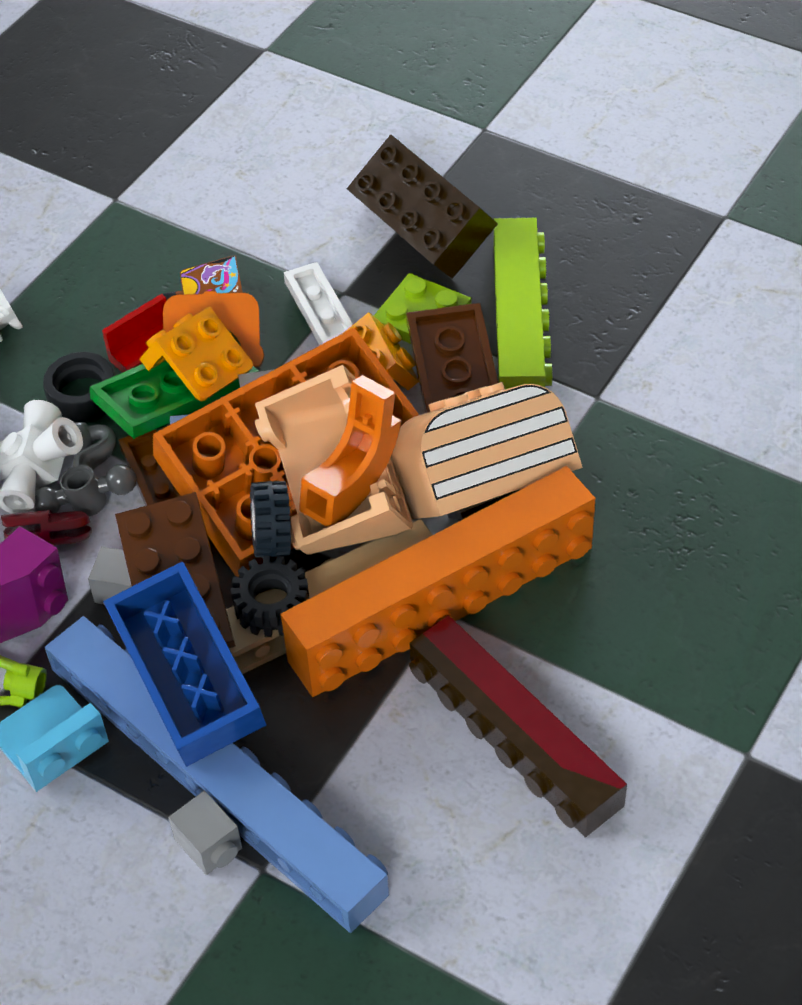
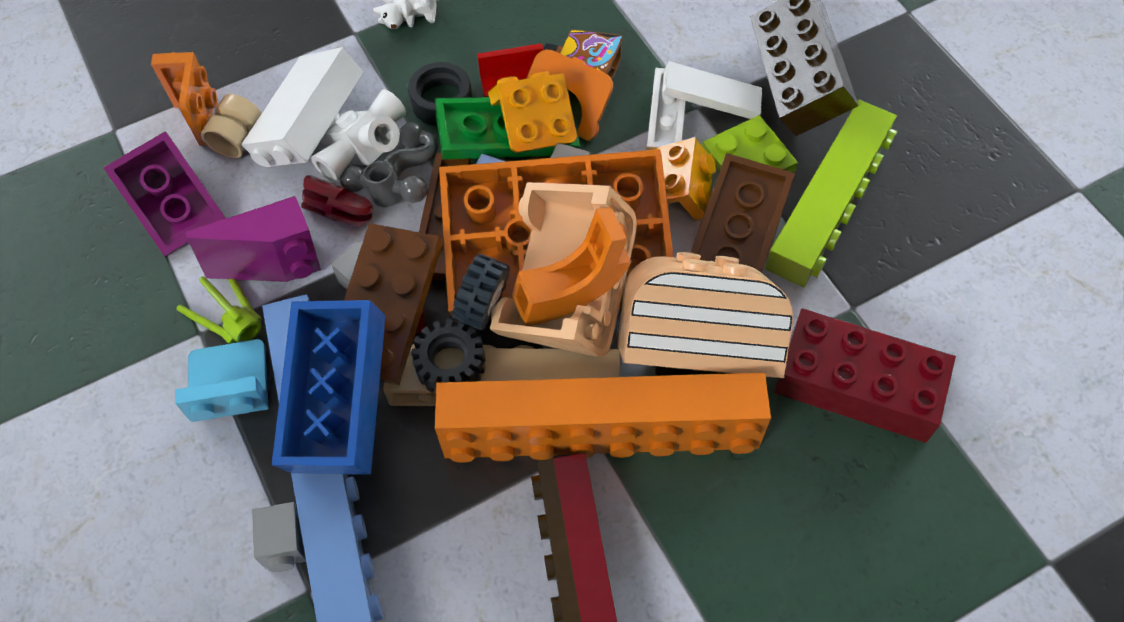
camera: 30 degrees right, 10 degrees up
(351, 269) = (712, 90): none -> white tile
(650, 440) = (866, 375): none -> dark red brick

